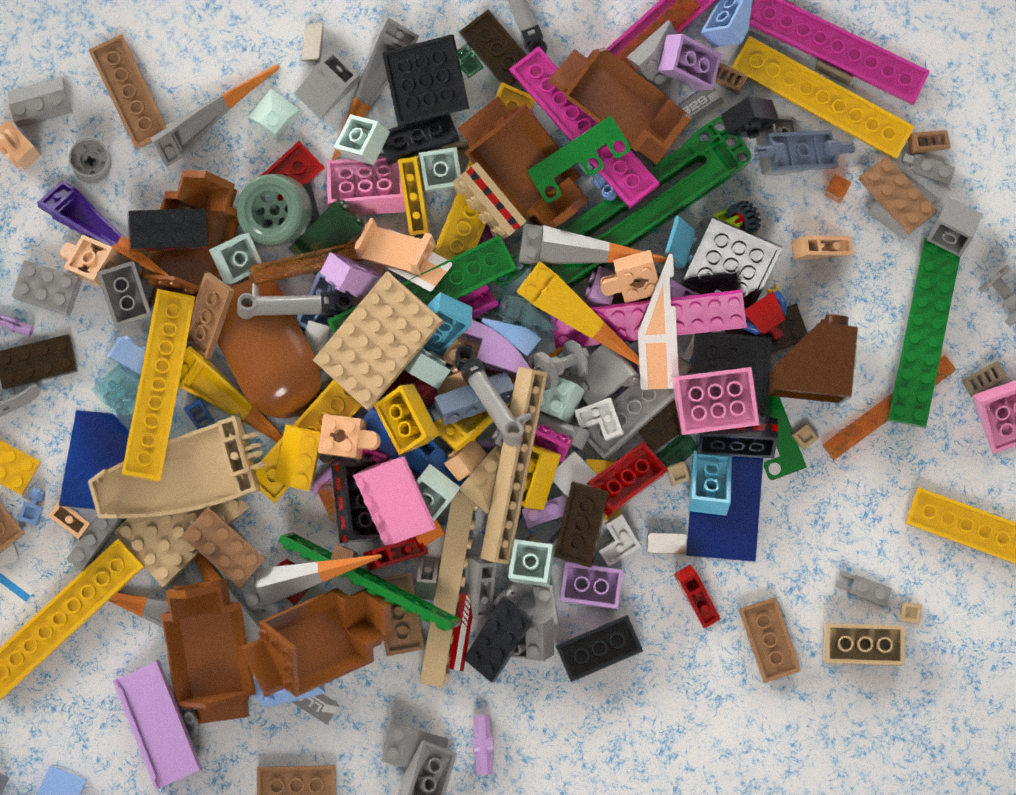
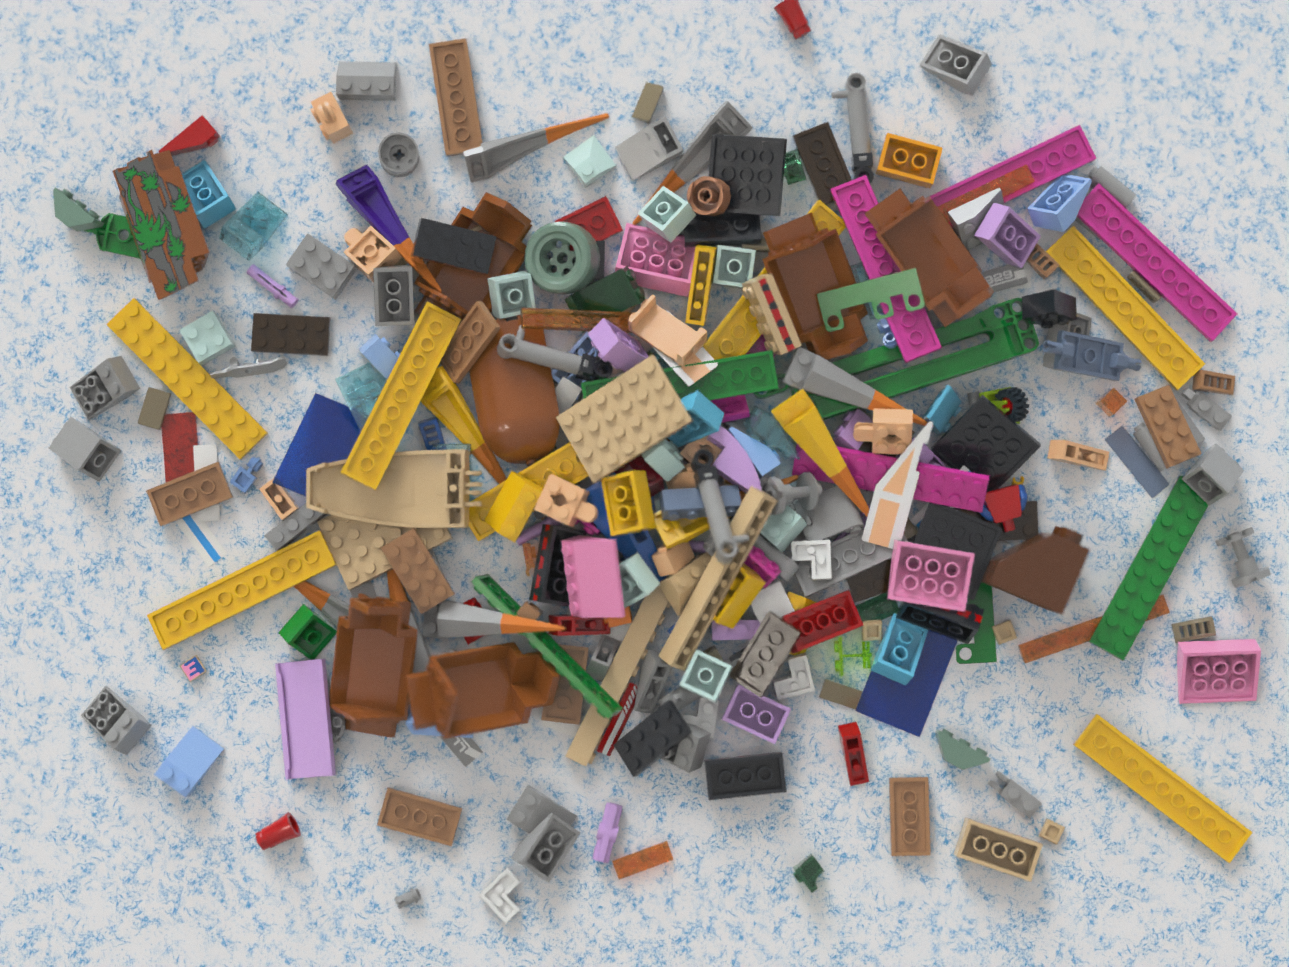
camera: 10 degrees right, 5 degrees up
(34, 710) = (193, 668): none -> tile
(135, 640) = (307, 632): none -> green slope
(406, 112) = (718, 200): none -> nougat brick
(525, 761) = (642, 860): none -> clear orange plate
(575, 22) = (909, 160): none -> light orange brick
(656, 513) = (838, 648): none -> clear neon green plate
(688, 723) = (808, 871): none -> clear green brick
(797, 563) = (959, 752): none -> sand green slope
(880, 238) = (1137, 461): none -> sand blue sticker

